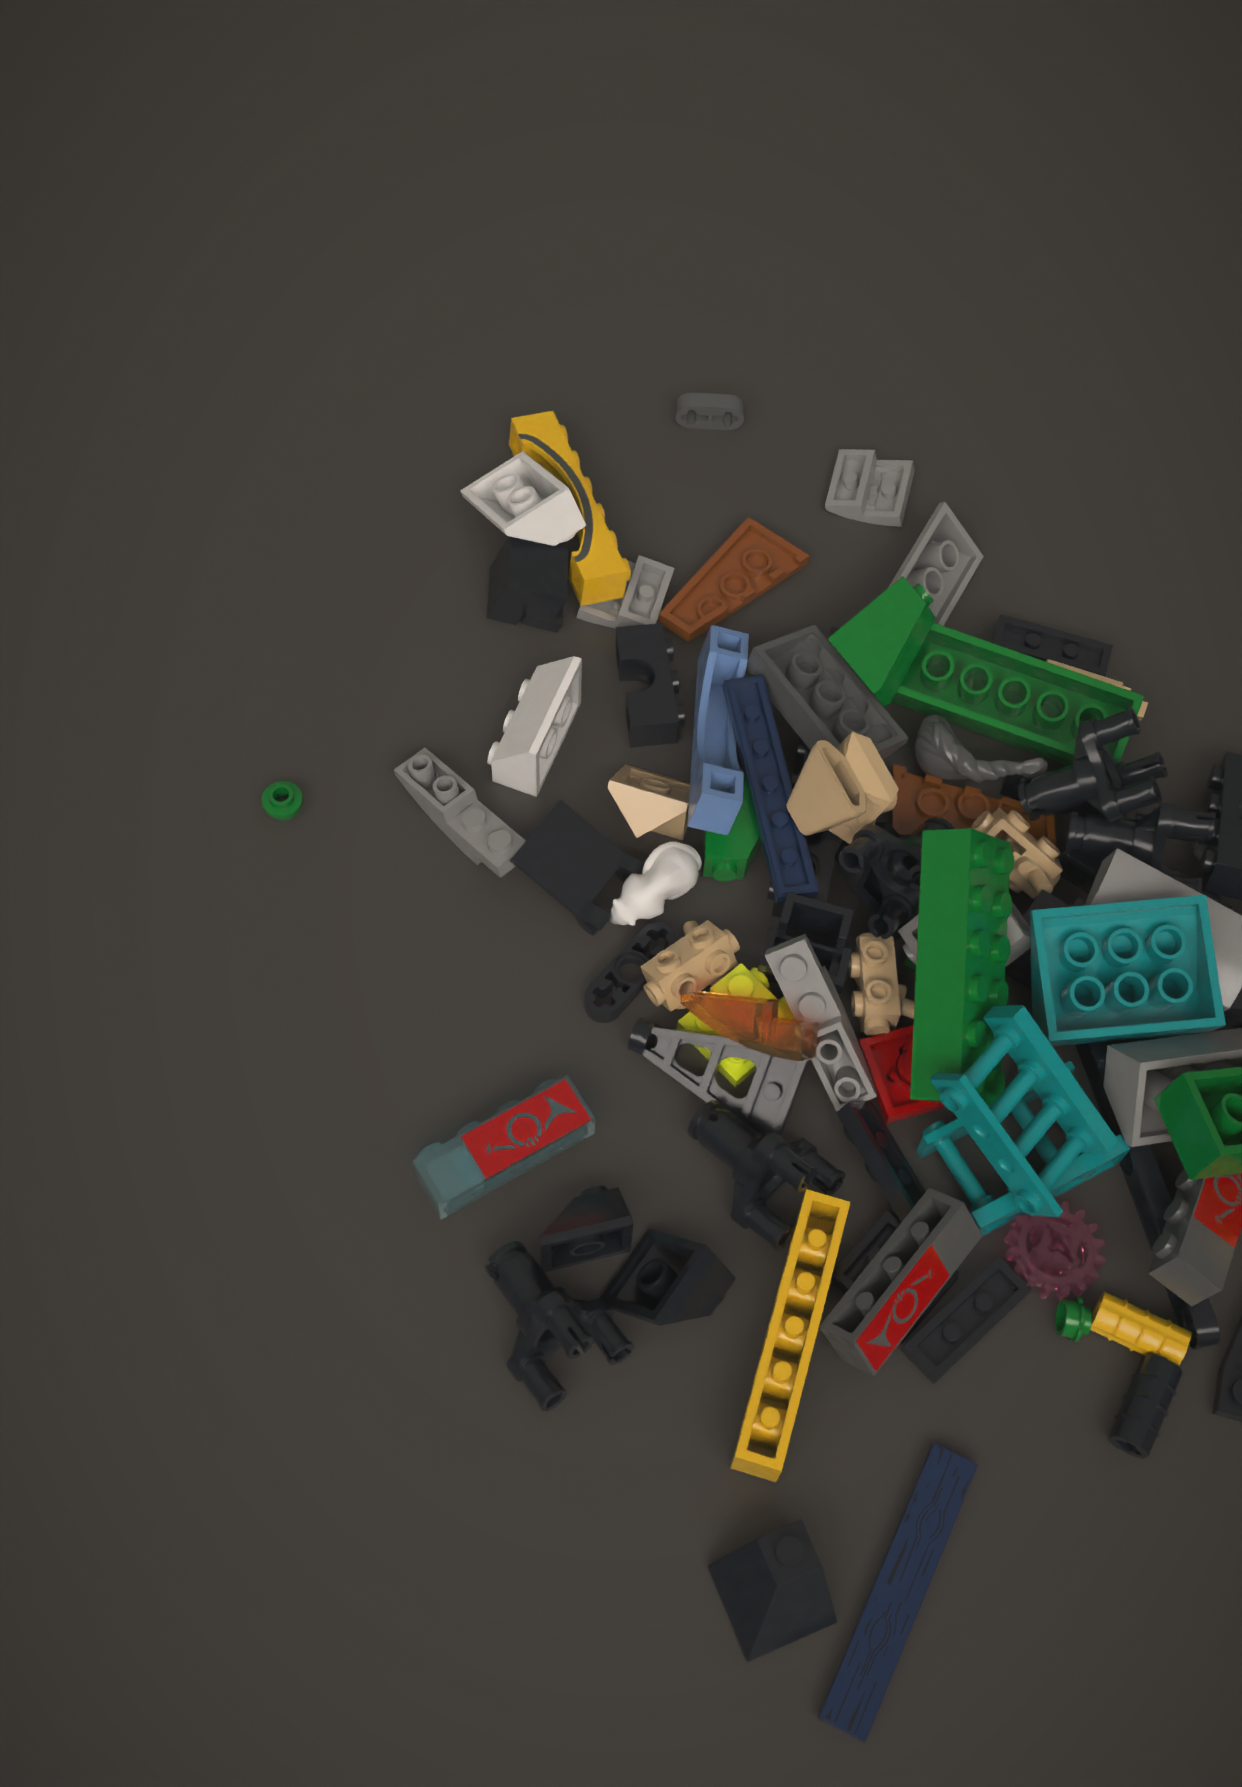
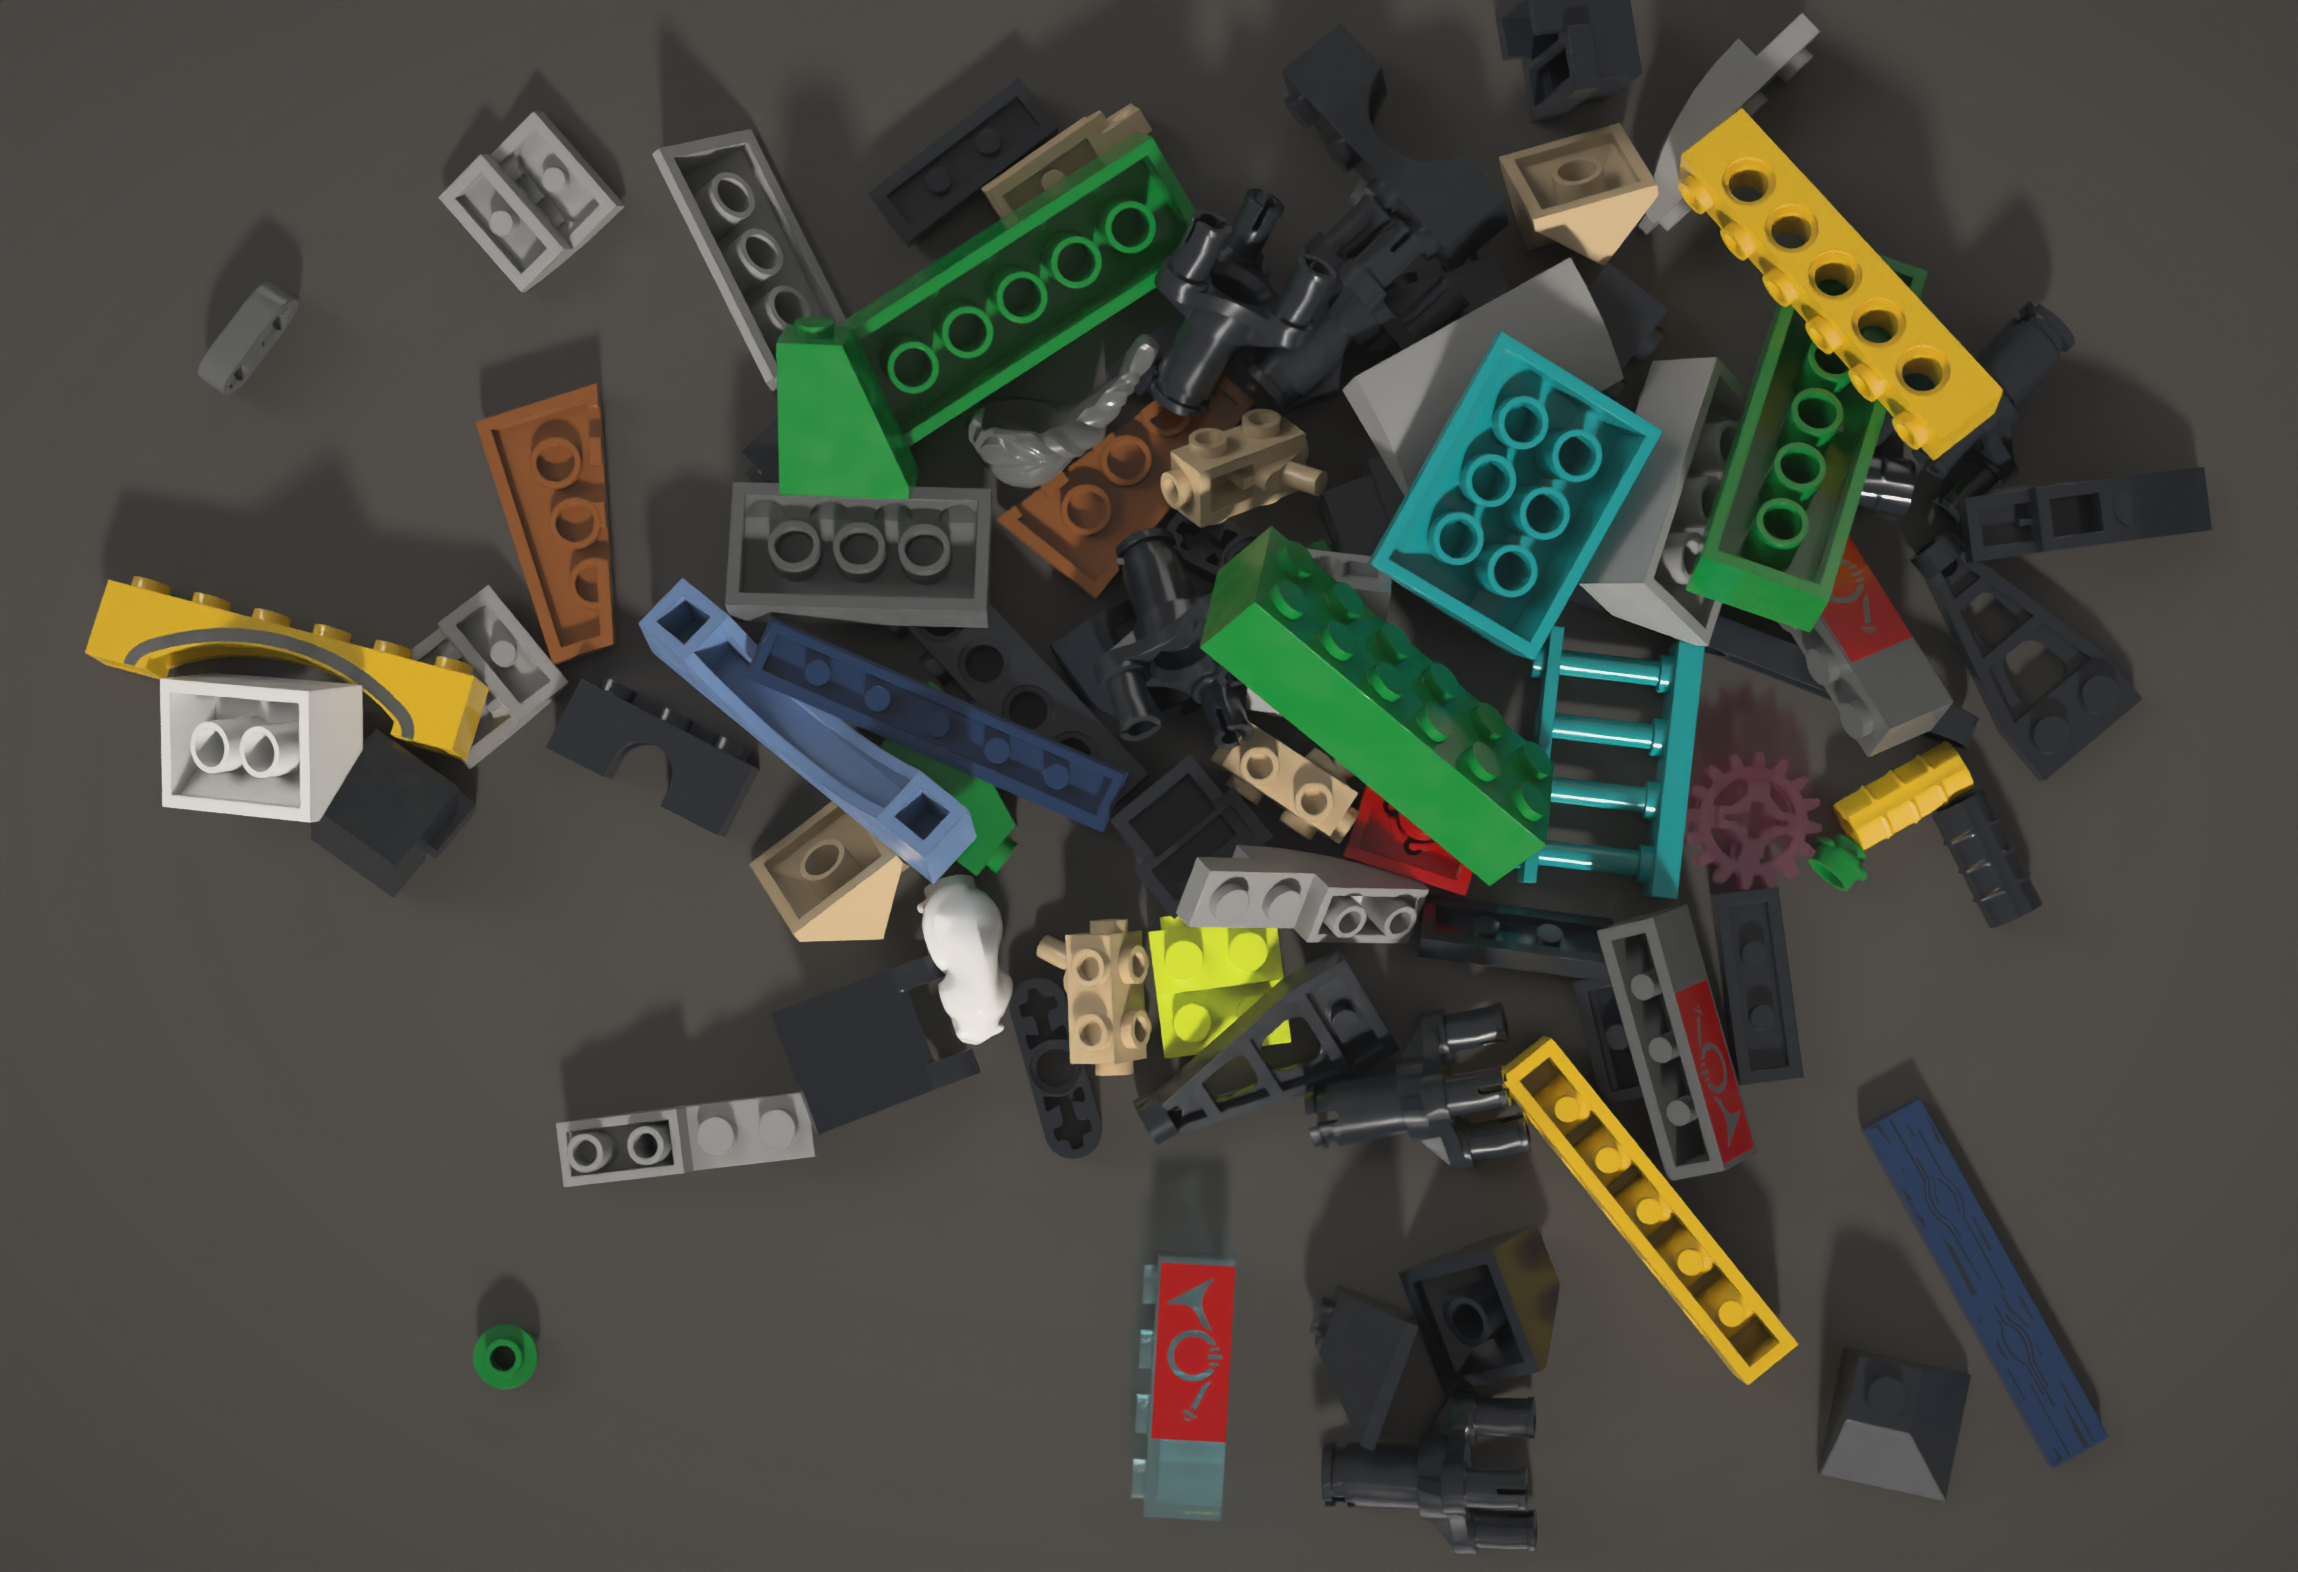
camera: 55 degrees left, 25 degrees up
(537, 726) = (623, 955): white slope -> none
(754, 1024) = (1252, 991): clear orange slope -> none
(842, 788) = (1028, 656): tan piece -> none
(1061, 1101) = (1614, 708): teal fence -> none

